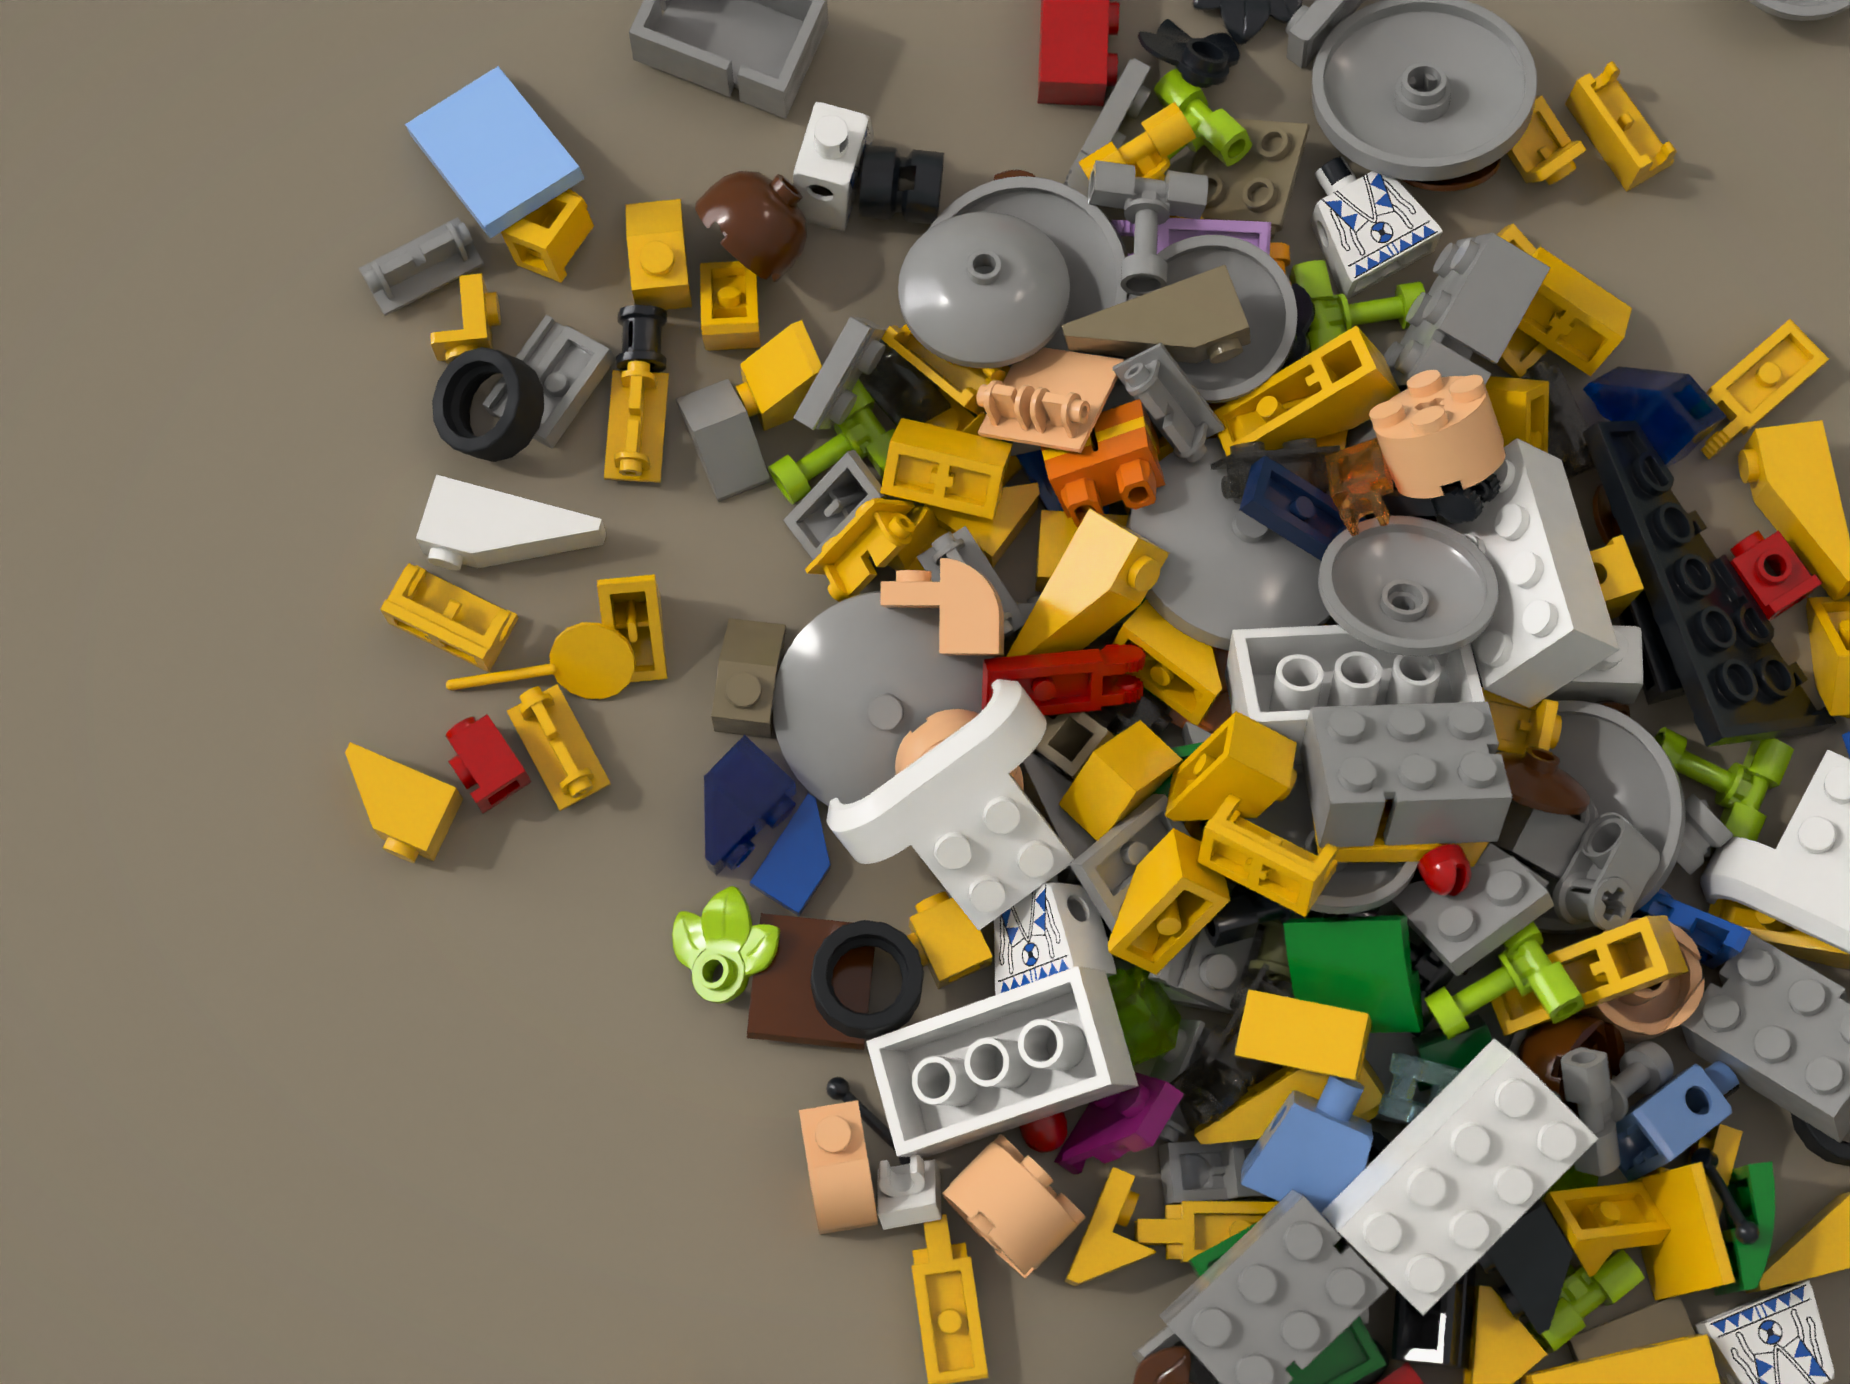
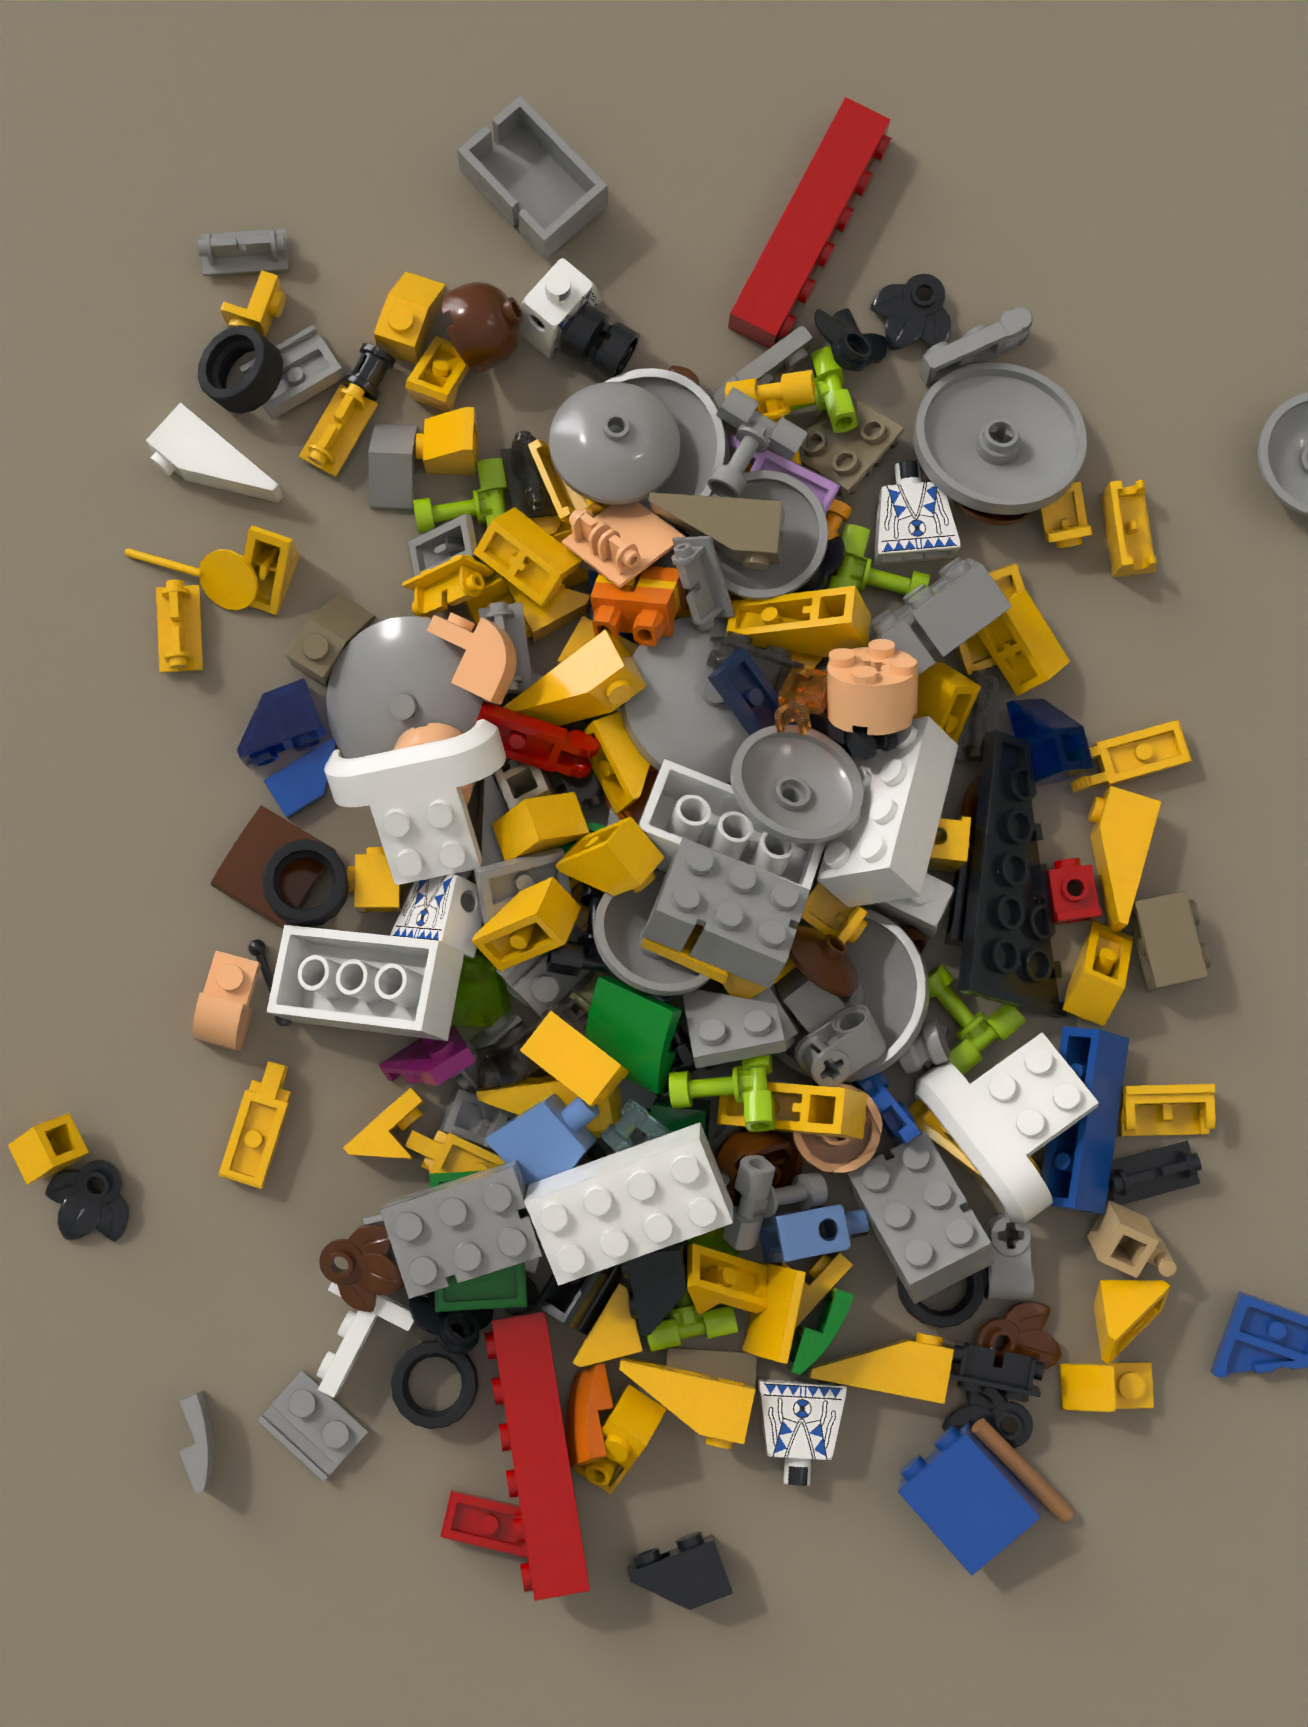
camera: 20 degrees right, 5 degrees up
(403, 804) = (53, 620): yellow slope -> none
(448, 617) = (147, 504): yellow hinge -> none
(486, 761) = (124, 616): red brick -> none
(494, 152) = (329, 193): light blue tile -> none
(550, 235) = (341, 265): yellow brick -> none
(725, 937) = (225, 811): lime plate -> none
(830, 394) = (473, 466): light grey plate -> none
(908, 1193) = (267, 1040): white tile -> none
(1013, 1206) = (329, 1082): light nougat brick -> none
(1046, 1133) = (381, 1043): red hinge -> none
(1265, 860) = (601, 926): yellow hinge -> none
(1446, 870) = (724, 992): red hinge -> none
(1745, 1231) = (815, 1273): black hinge -> none

